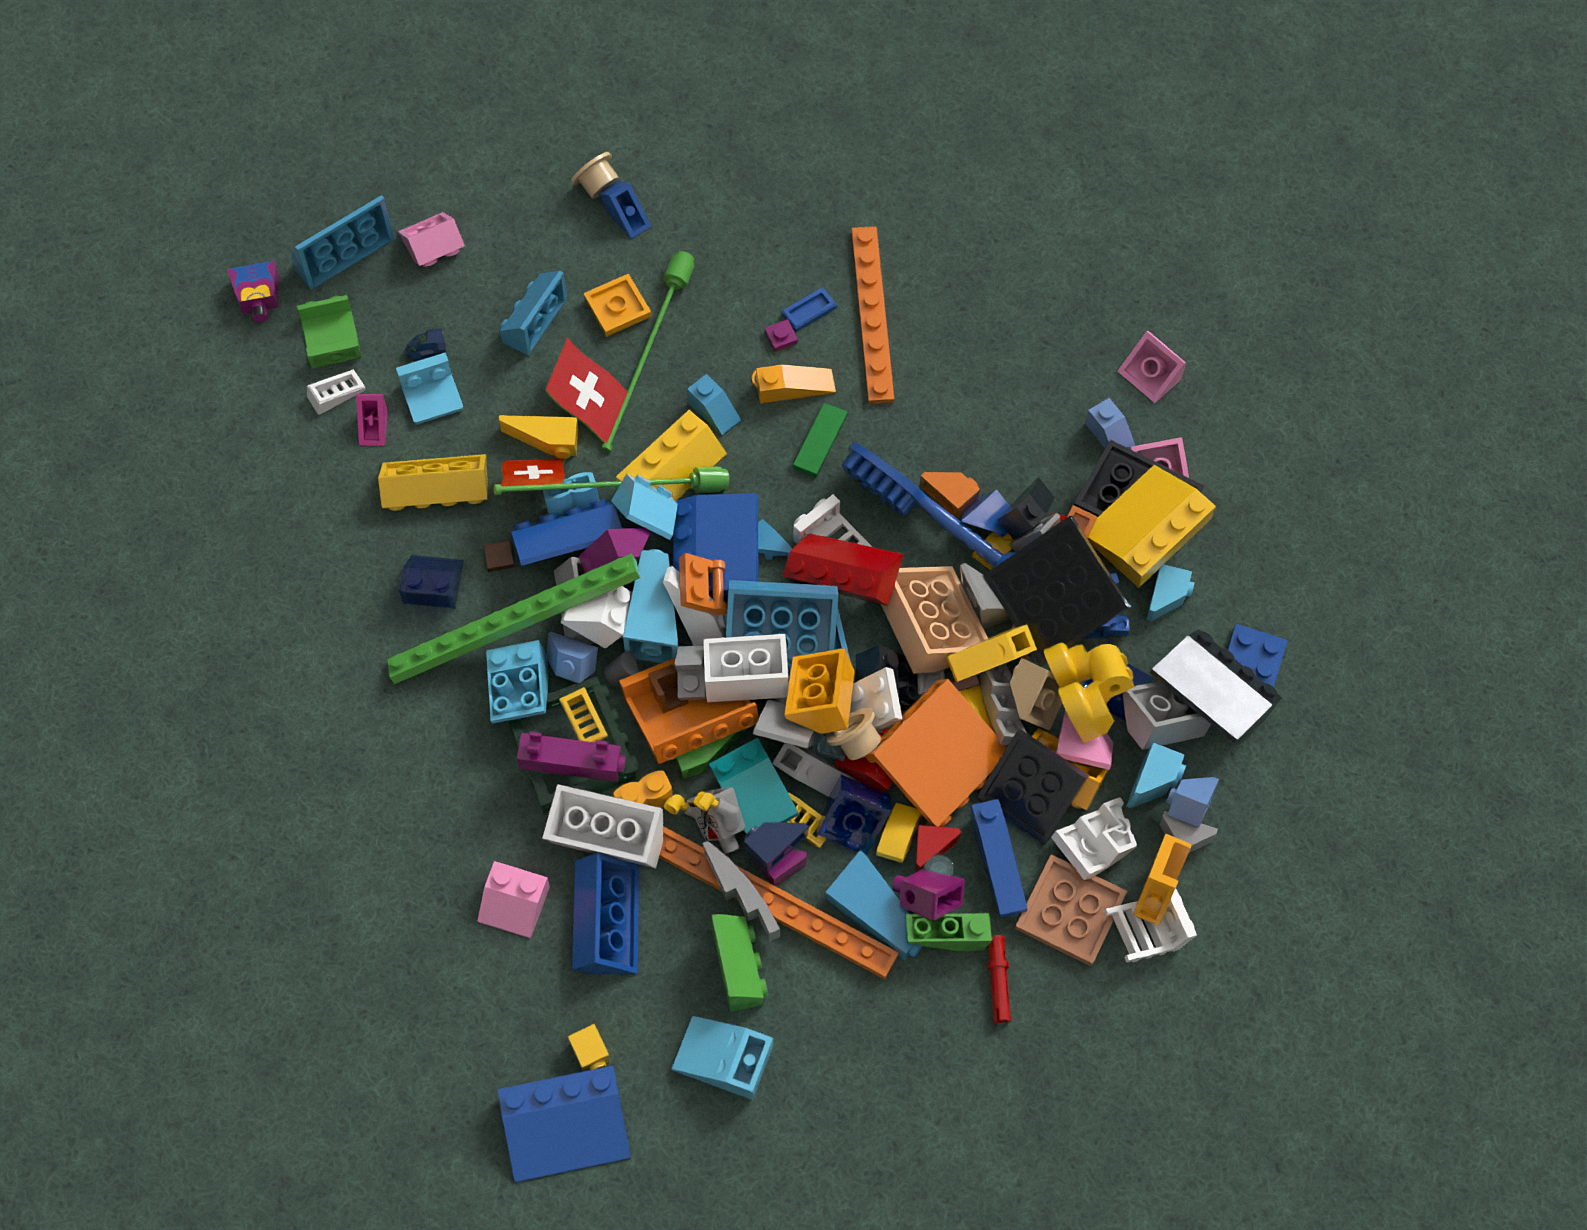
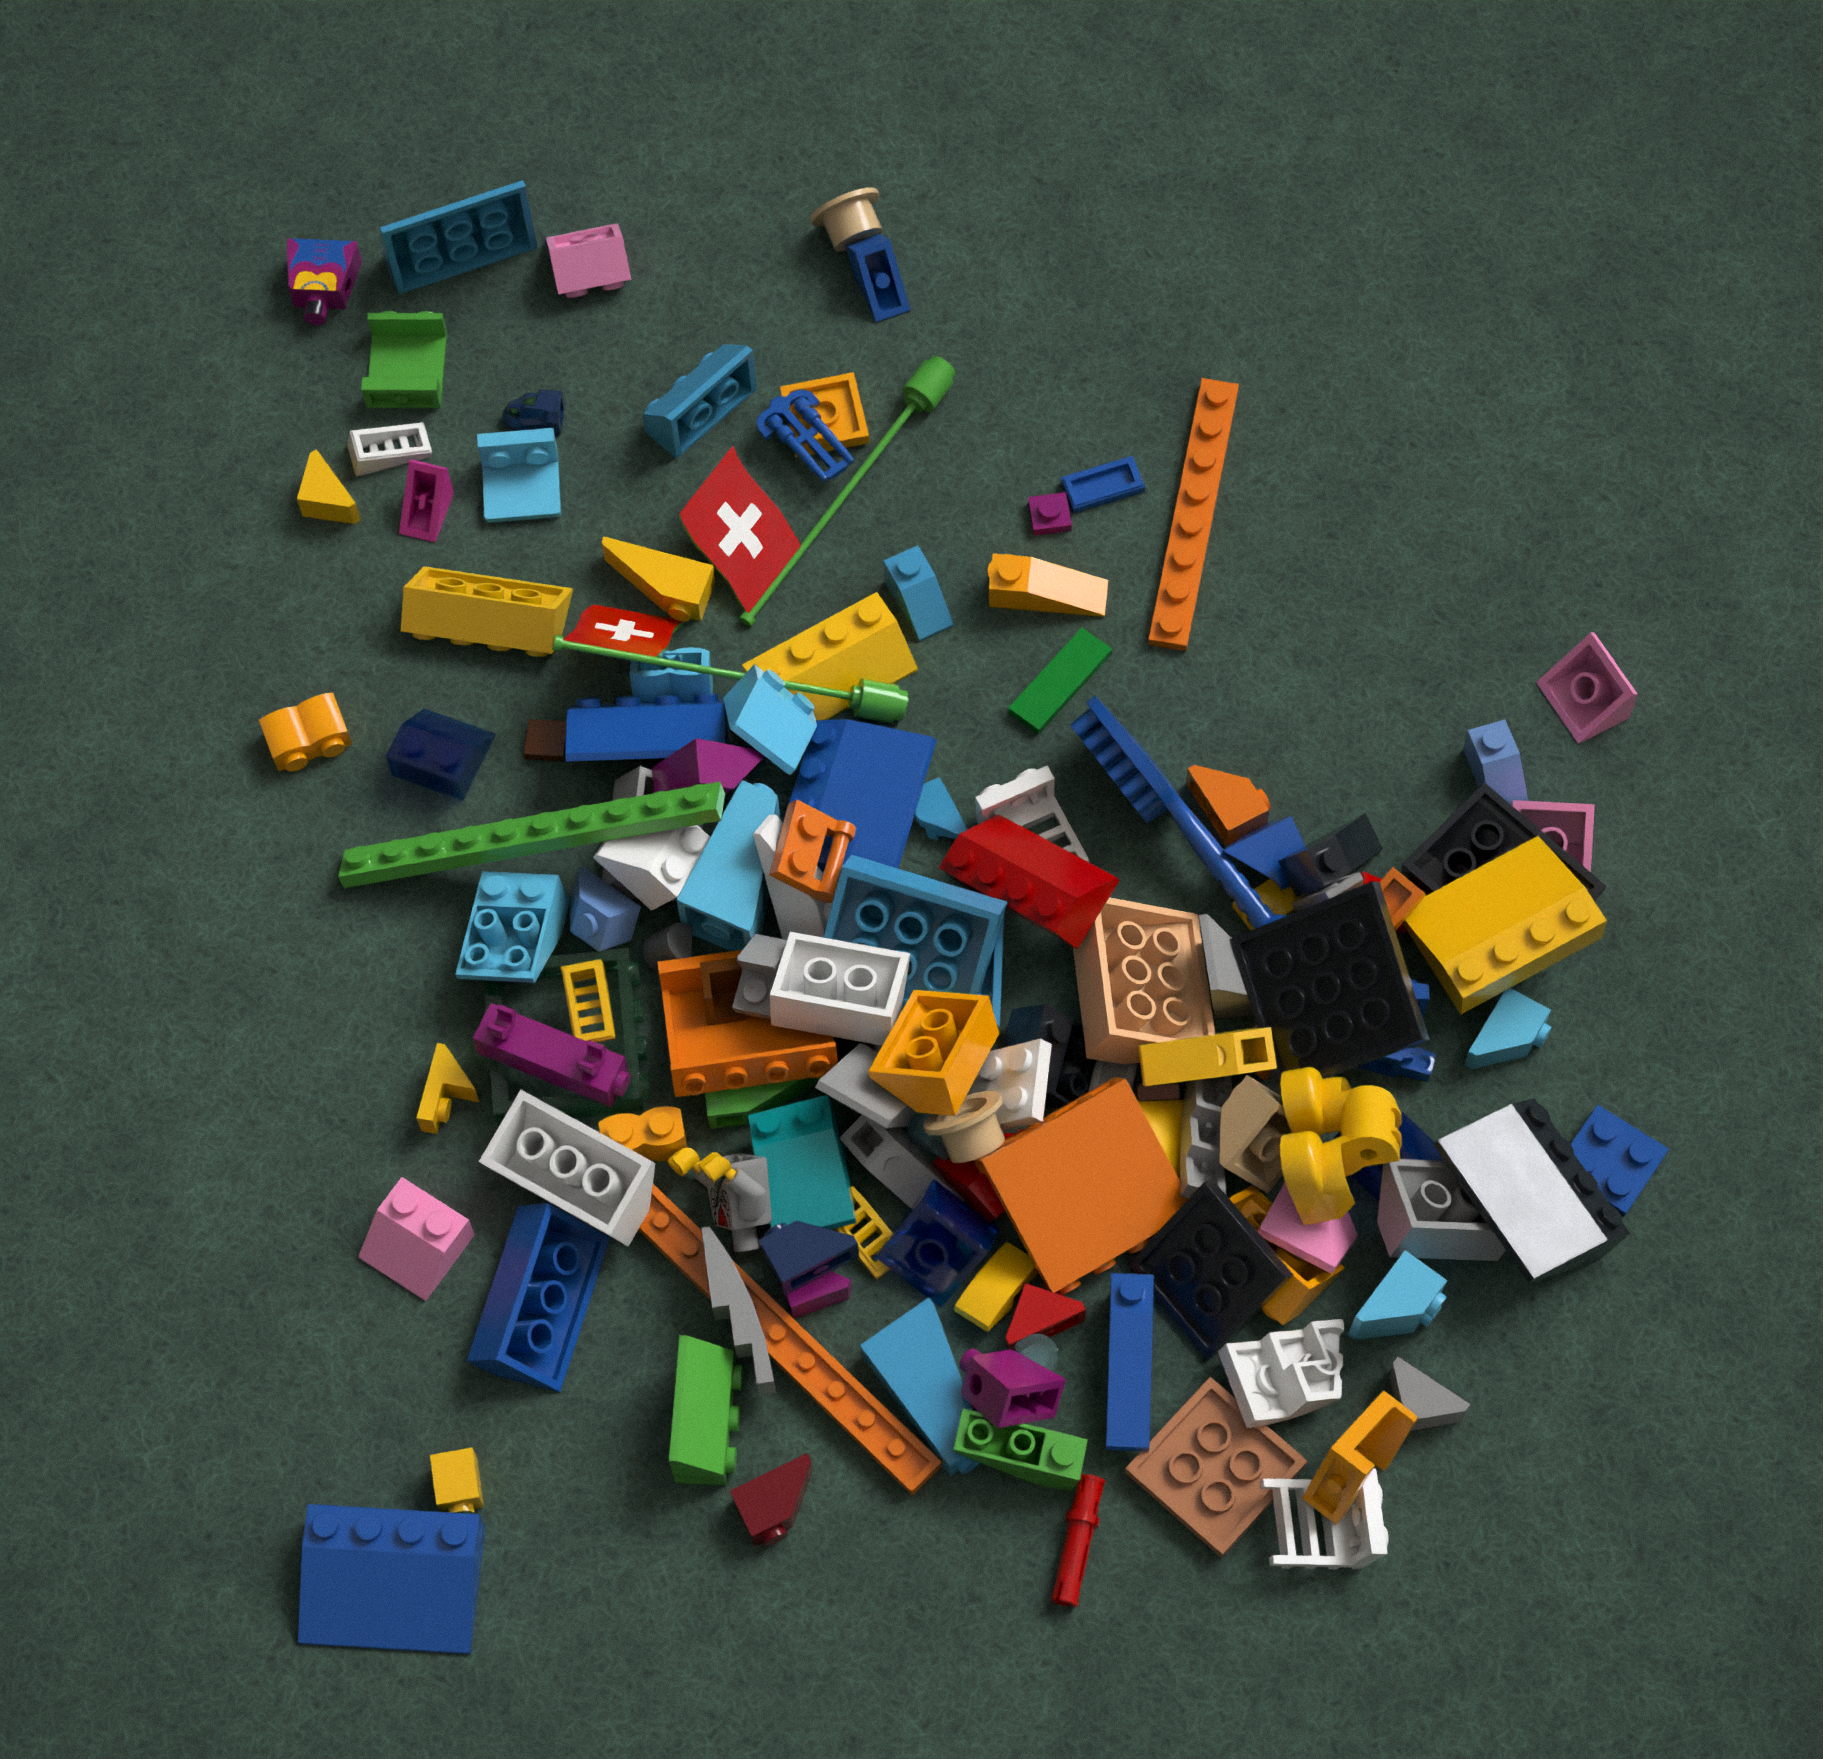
camera: 20 degrees right, 0 degrees up
(303, 431) = (324, 495): none -> yellow slope
(337, 589) = (305, 732): none -> light orange brick
(502, 791) = (443, 1081): none -> yellow slope
(601, 298) = (802, 400): none -> blue piece
(724, 1056) = (645, 1544): medium azure slope -> none
(797, 1007) = (773, 1500): none -> dark red slope
(1192, 799) = (1445, 1350): medium blue slope -> none

